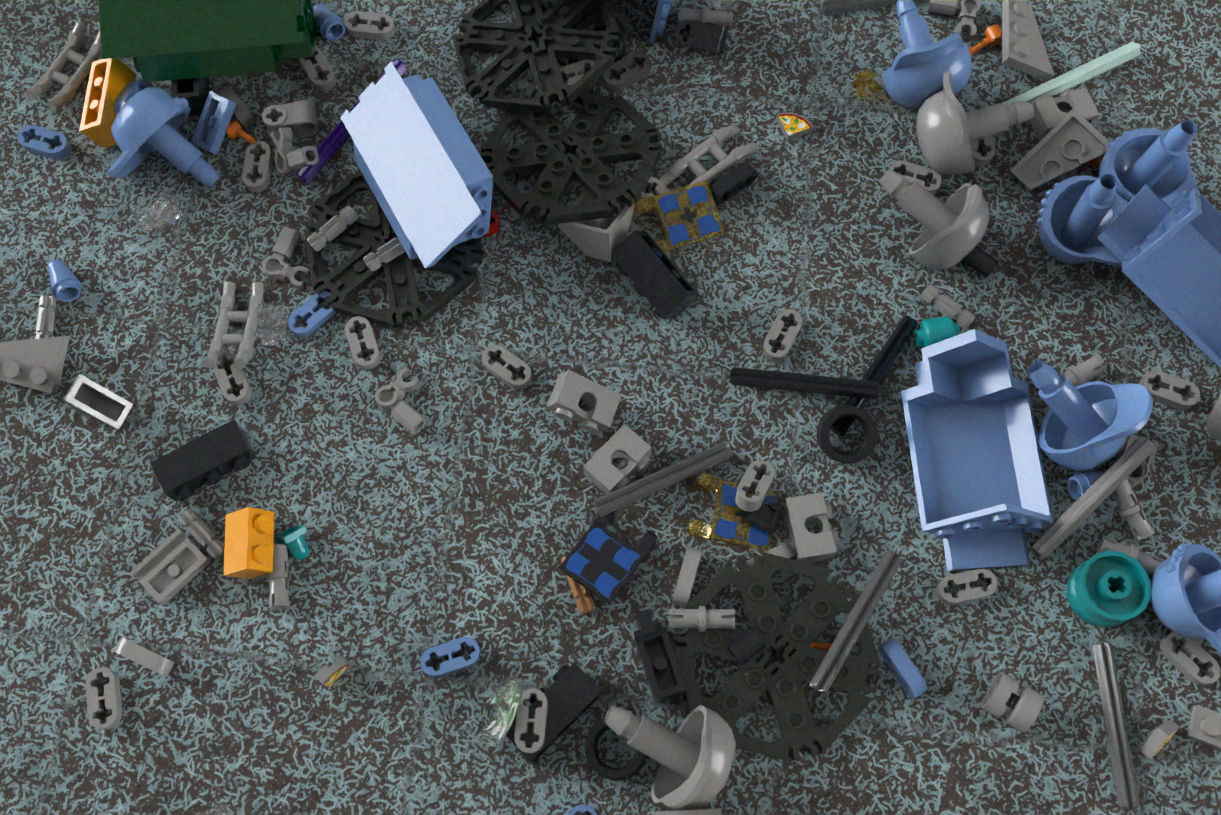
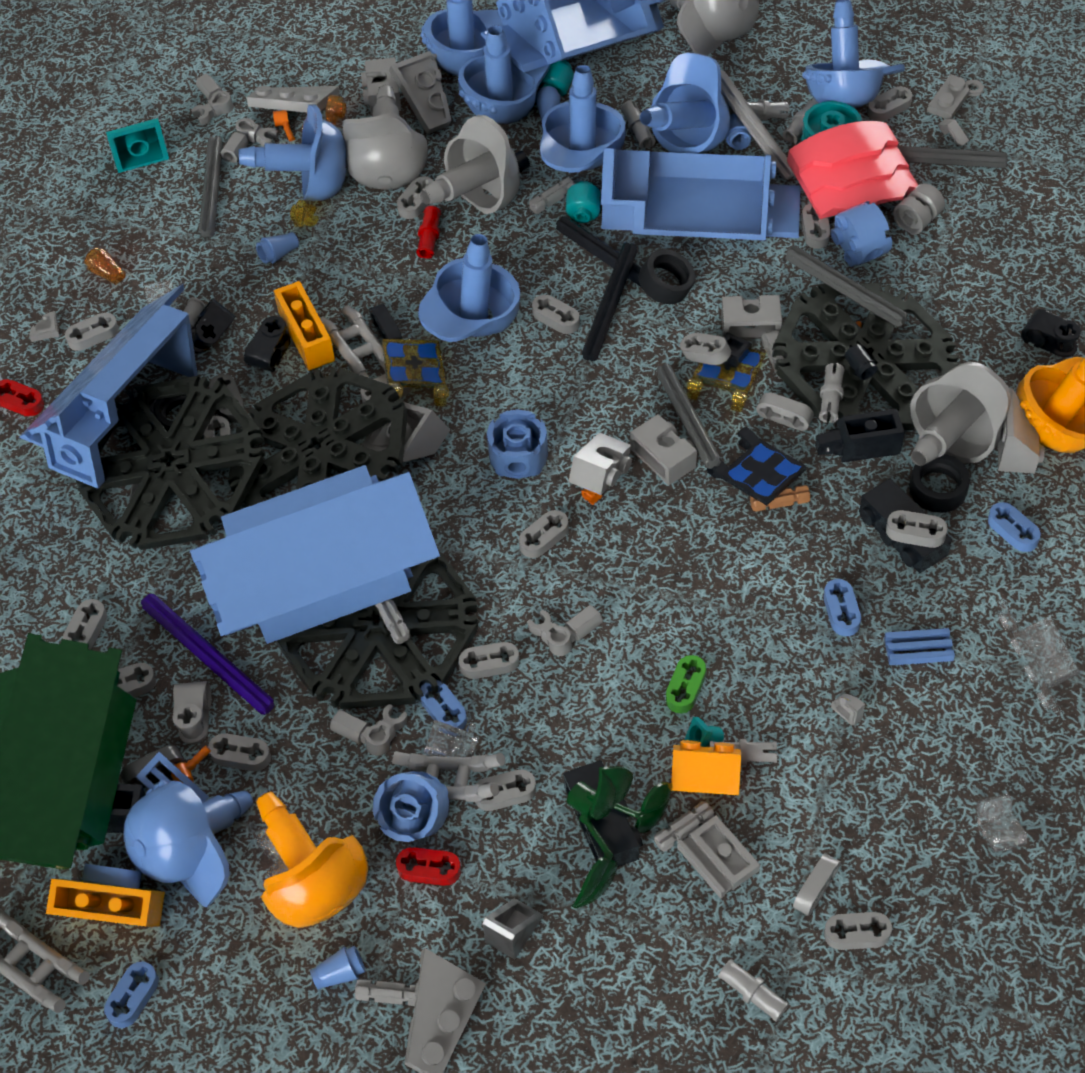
camera: 80 degrees left, 15 degrees down
(44, 611) = (753, 990): none -> light grey pin
(121, 241) = (318, 878): none -> light orange piece
(151, 330) = (429, 860): none -> red beam
(190, 445) = (597, 804): none -> dark green plant
(195, 301) = (411, 806): none -> medium blue brick
(287, 157) = (243, 714): light grey bar -> none
(332, 228) = (350, 668): light grey axle -> none
(352, 510) = (692, 686): none -> bright green beam
(407, 710) = (938, 639): none -> medium blue tile
(505, 704) = (904, 555): clear slope -> none
(598, 323) = (517, 444): none -> medium blue brick
(654, 275) = (476, 394): black brick -> none
(689, 88) = (268, 344): none -> black piece
(714, 110) = (304, 325): none -> light orange brick
(761, 239) = (464, 293): none -> medium blue piece
(793, 125) = (331, 276): tile -> none
(817, 69) = (275, 247): none -> medium blue cone
(864, 198) = (428, 232): none -> red pin
(902, 668) = (886, 272): medium blue beam -> none
(949, 635) = (861, 233): none -> medium blue brick
(1014, 78) = (335, 109): none -> clear orange plate
(1025, 304) = (580, 128): none -> medium blue piece
(1051, 621) = (851, 167): none -> coral slope
(1079, 280) = (547, 98): none -> medium blue cone
(1080, 74) = (343, 73): light aqua axle -> none
(1117, 284) = (559, 76): none -> teal head
(1170, 388) = (655, 69): light grey beam -> none

